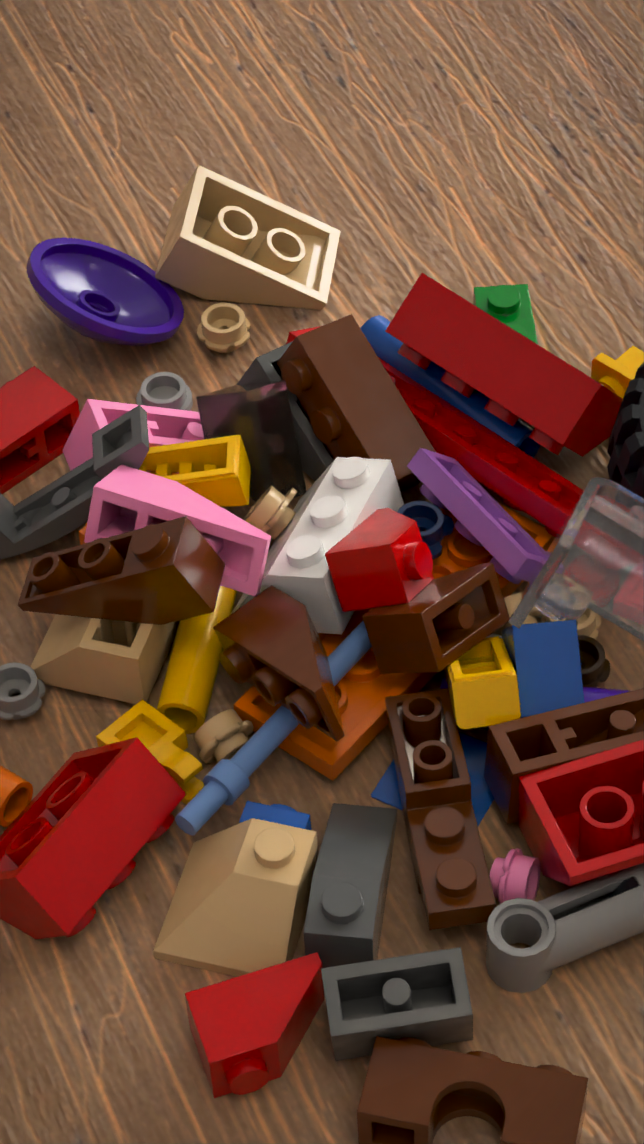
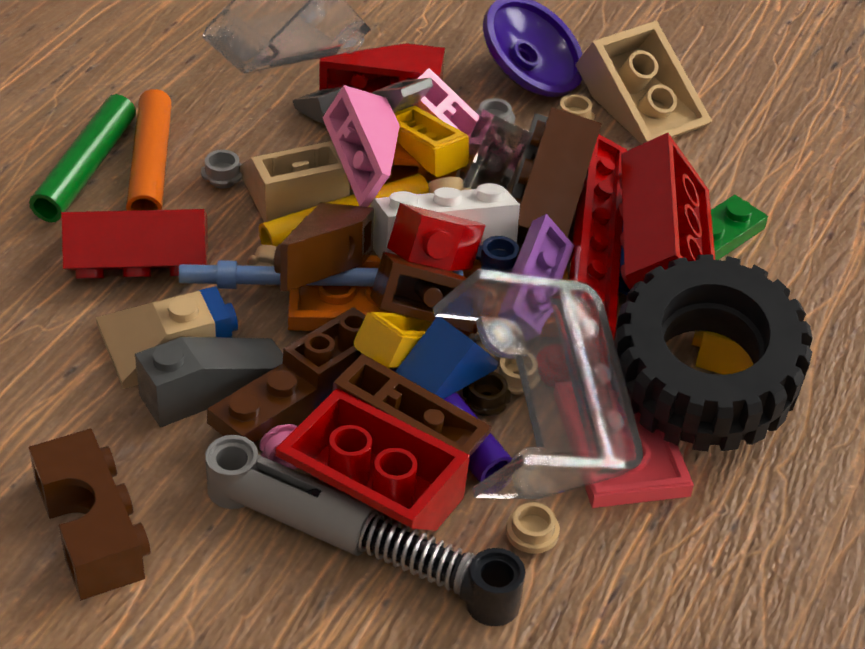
camera: 45 degrees right, 5 degrees down
(131, 577) = (310, 143): reddish brown slope -> none
(162, 739) = (233, 235): yellow plate -> none
(254, 1023) = (72, 380): red slope -> none
(398, 998) = (133, 429): dark grey brick -> none

